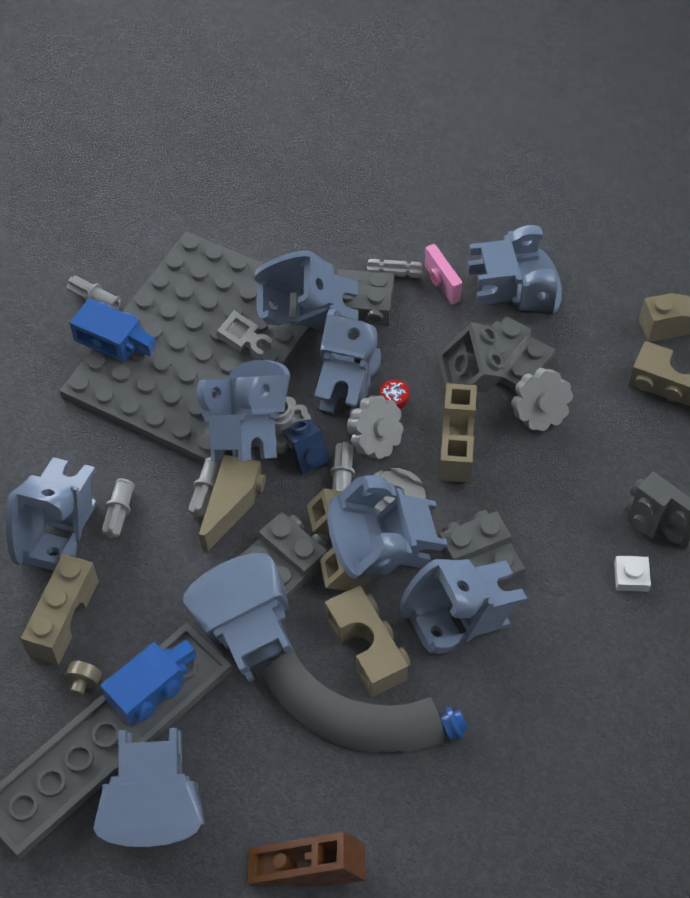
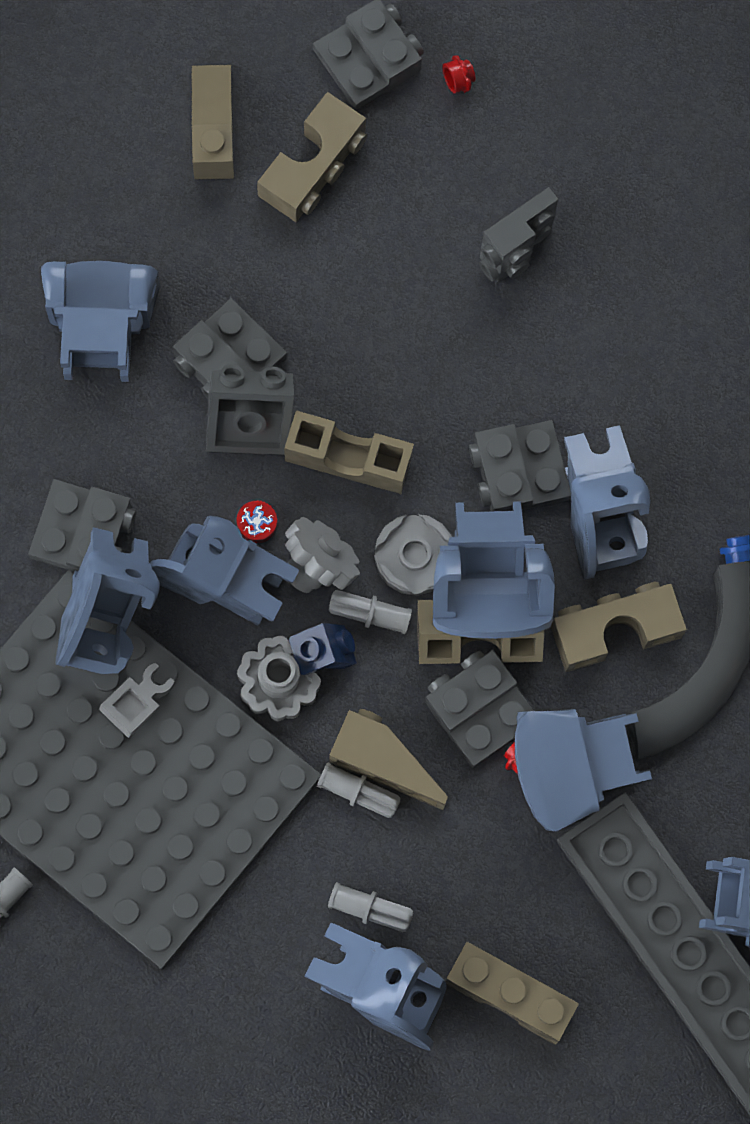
camera: 85 degrees left, 20 degrees up
(82, 677) = (609, 975): dark tan tile -> none
(110, 331) = (94, 880): blue hinge -> none
(147, 681) = (641, 890): blue hinge -> none
(254, 397) = (277, 696): sand blue piece -> none
(399, 268) = (41, 476): light grey axle -> none
(443, 274) = (72, 413): bright pink plate -> none
(542, 399) = (317, 337): light grey plant -> none
(632, 573) = (577, 297): white plate -> none

